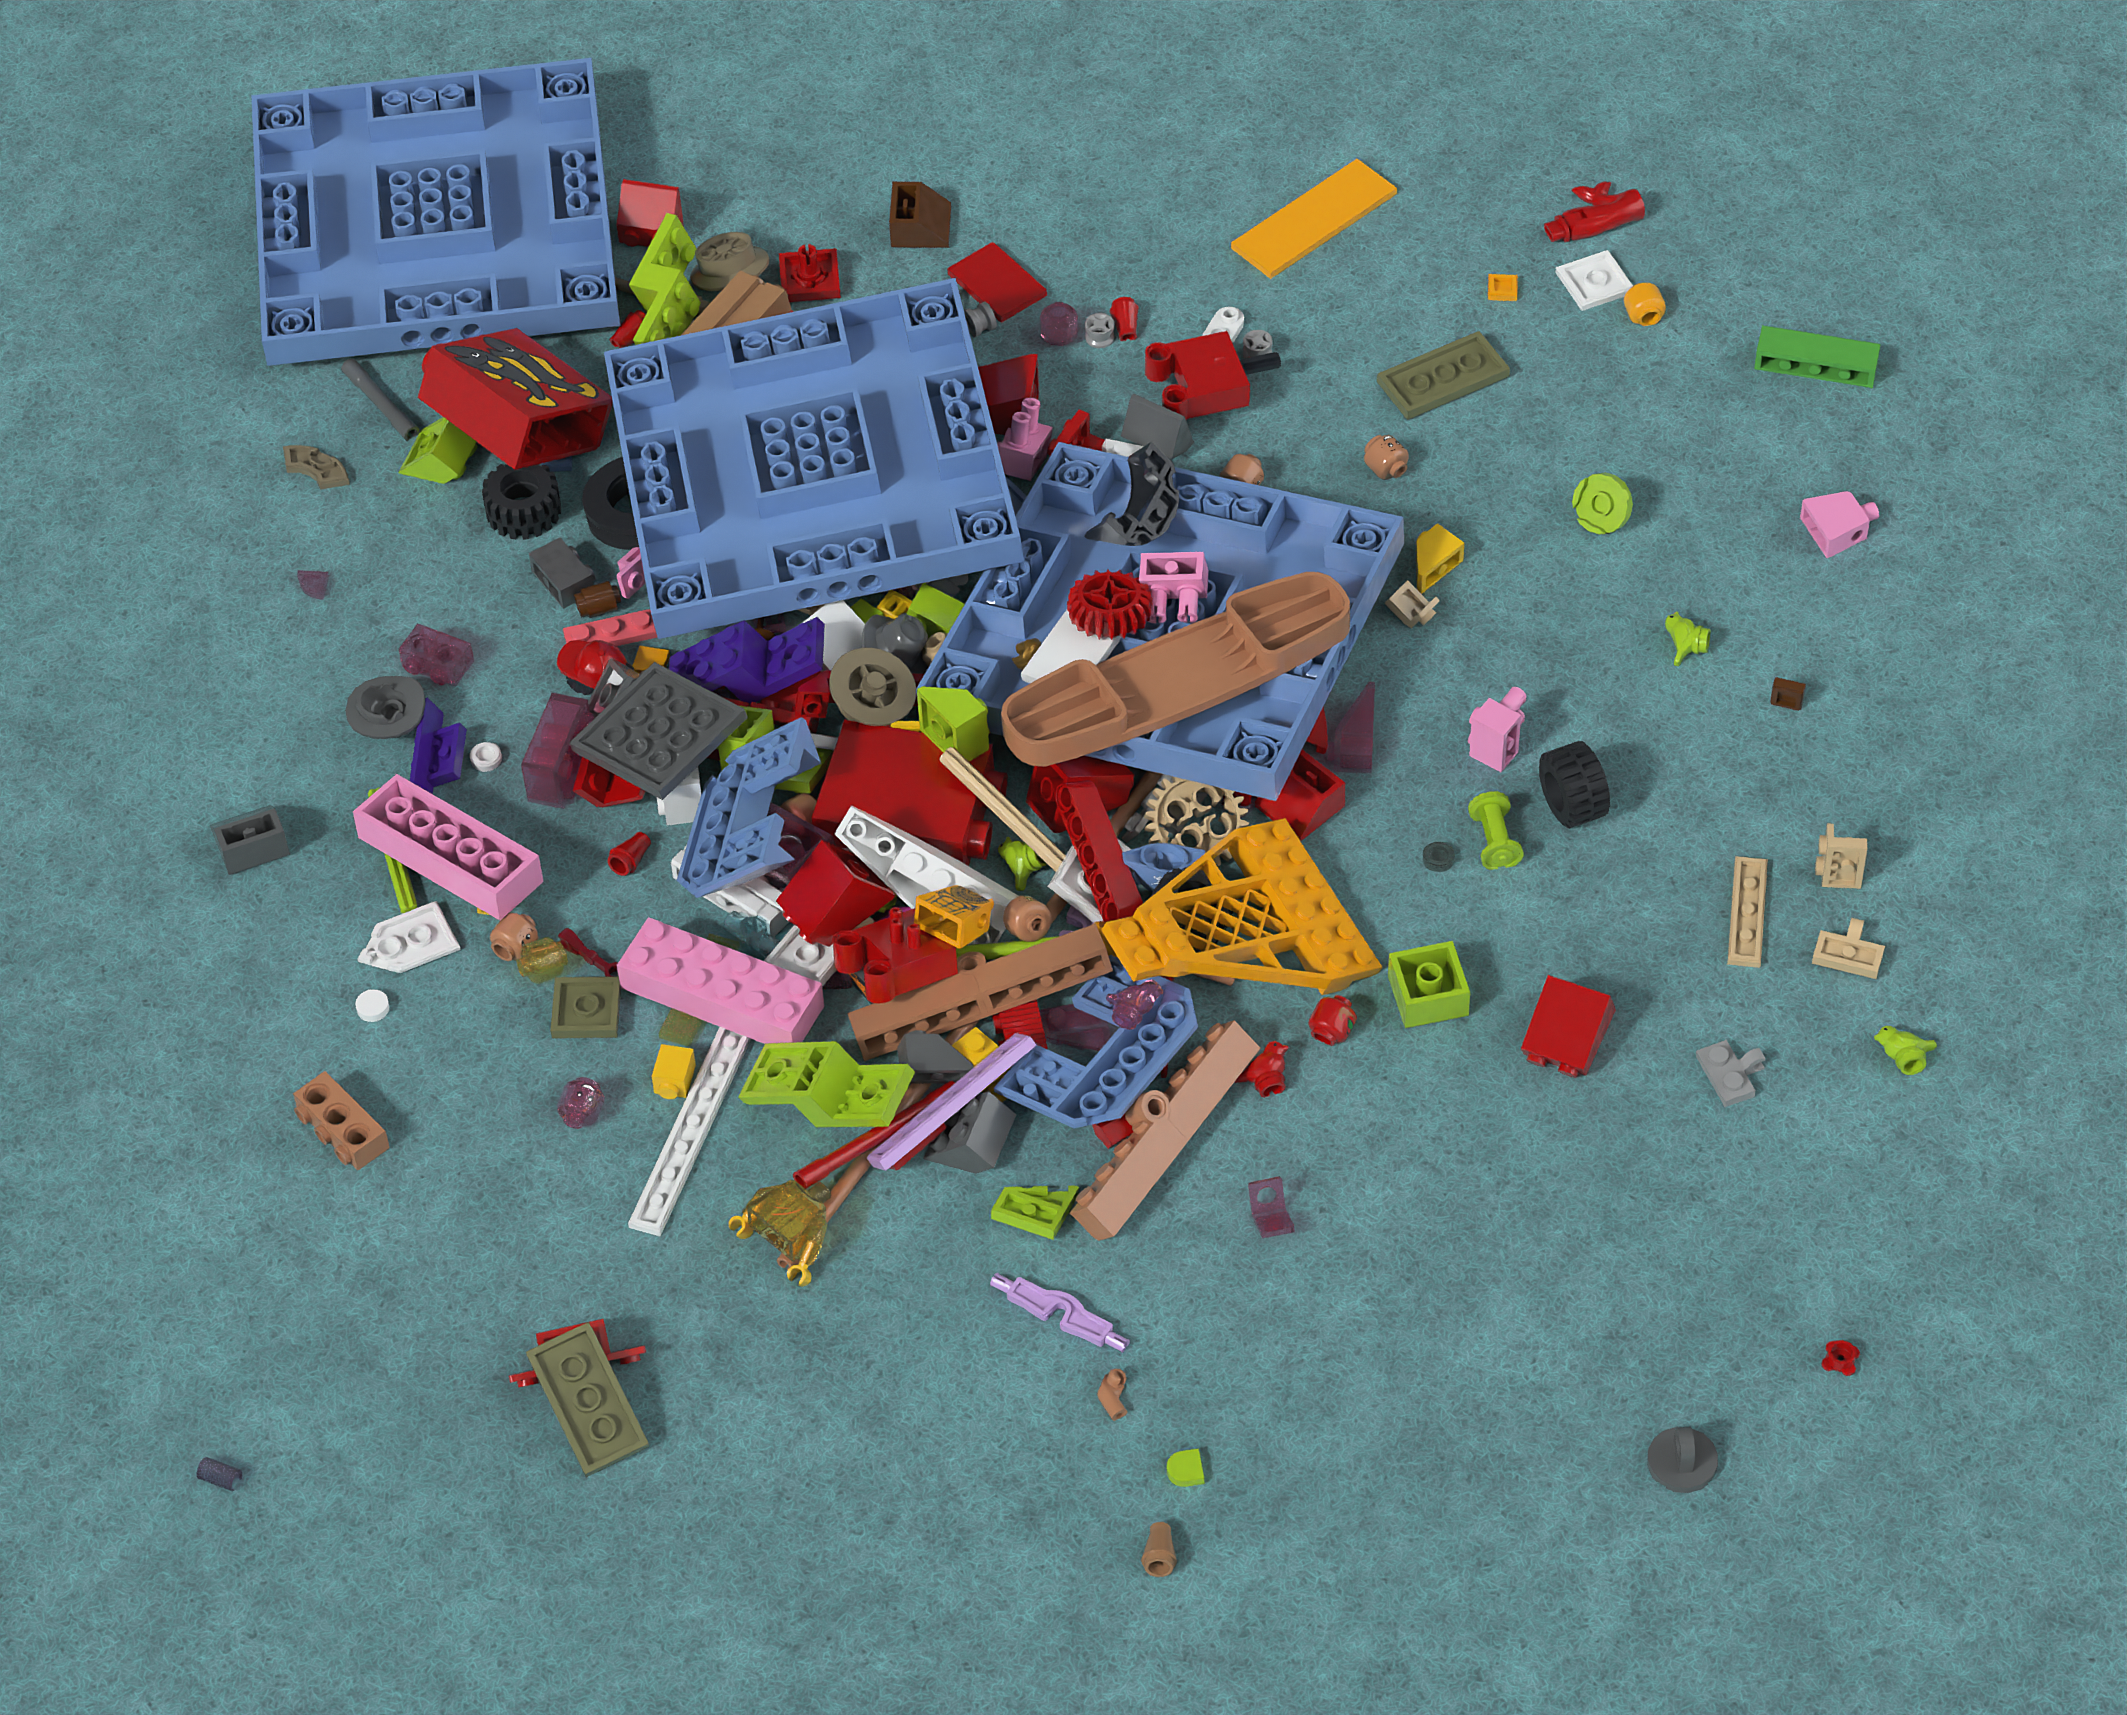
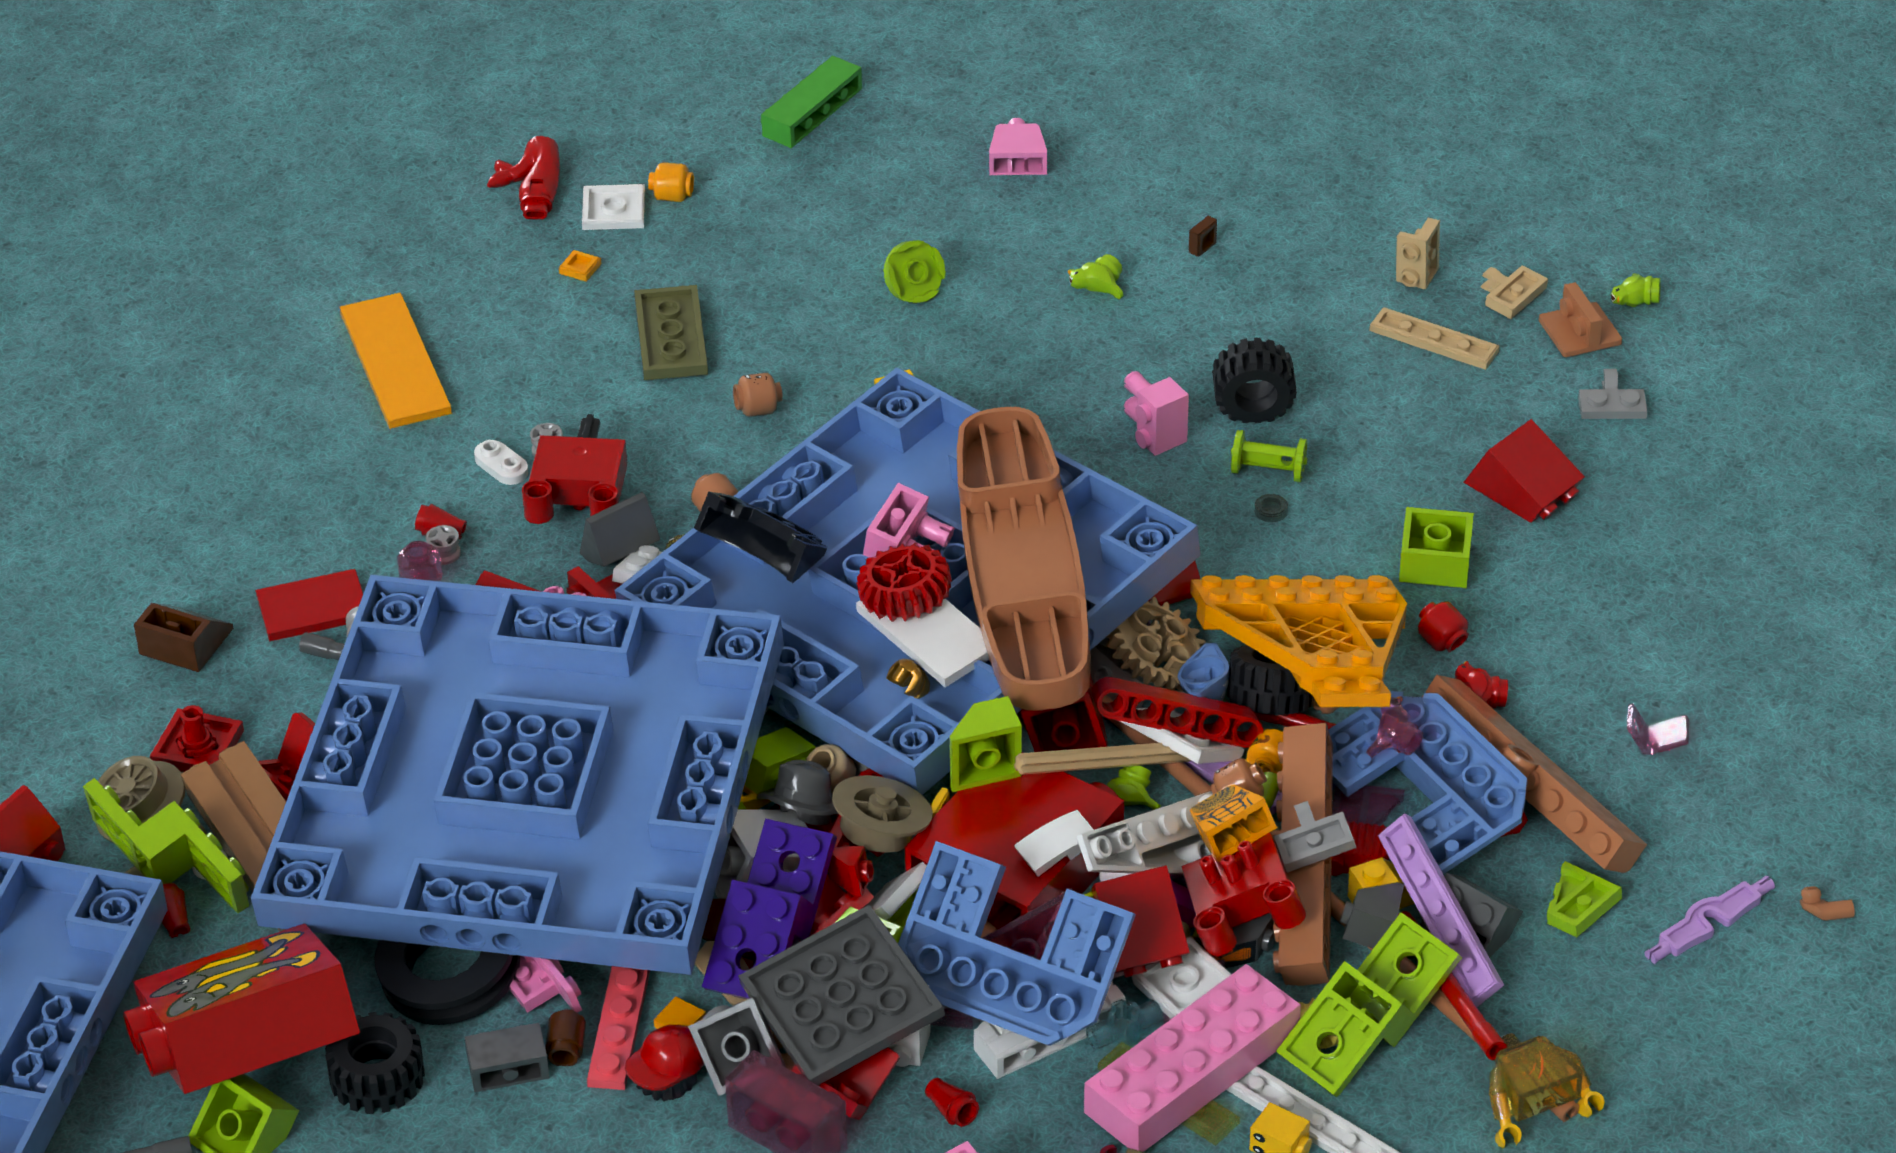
camera: 70 degrees left, 10 degrees down
(879, 805) = (1053, 842): none -> white slope
(970, 983) = (1313, 839): none -> light grey plate
(1825, 1017) = (1579, 324): none -> nougat bracket

